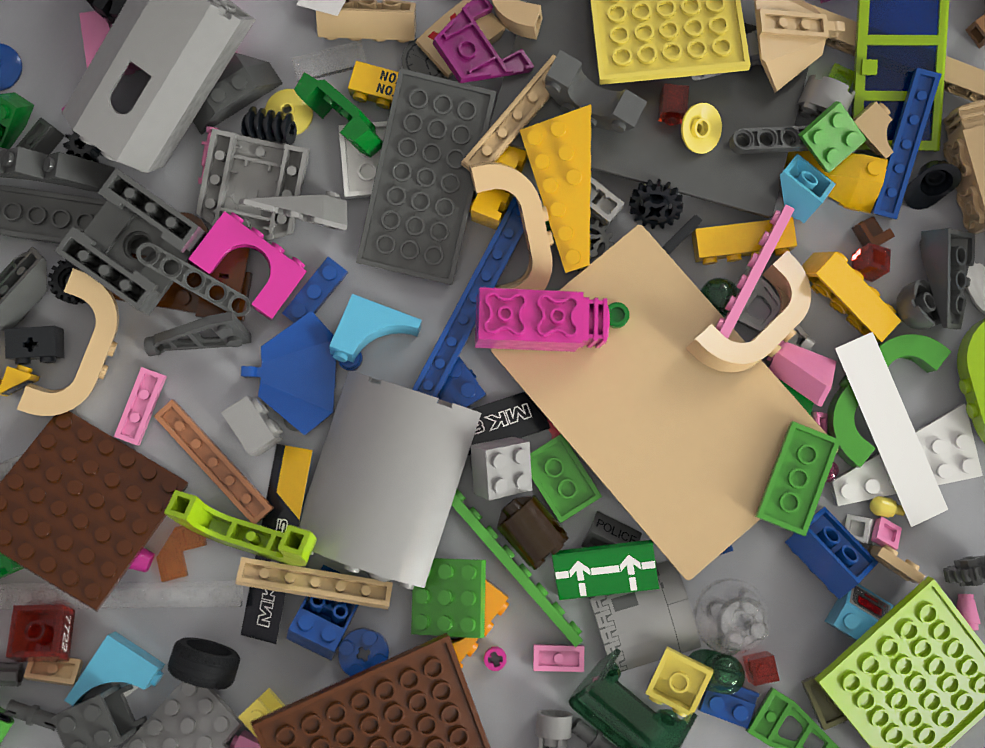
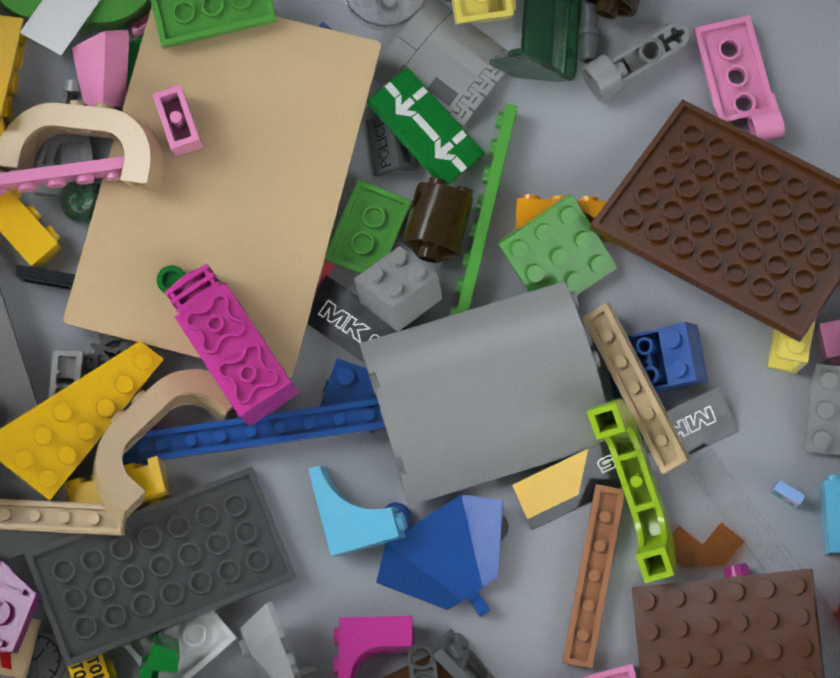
camera: 120 degrees left, 5 degrees down
(171, 636) = (787, 493): none -> light blue tile
(203, 663) = (786, 438): black tyre -> none
(252, 425) = (530, 557): light grey brick -> none
(316, 290) = (354, 599): blue plate -> none
(368, 640) = (652, 303): blue plate -> none
(490, 665) = (574, 174): dark pink bush -> none
(558, 658) = (539, 117): bright pink plate -> none
(656, 204) = (31, 320): black gear -> none
(728, 394) = (178, 120): none -> bright pink brick

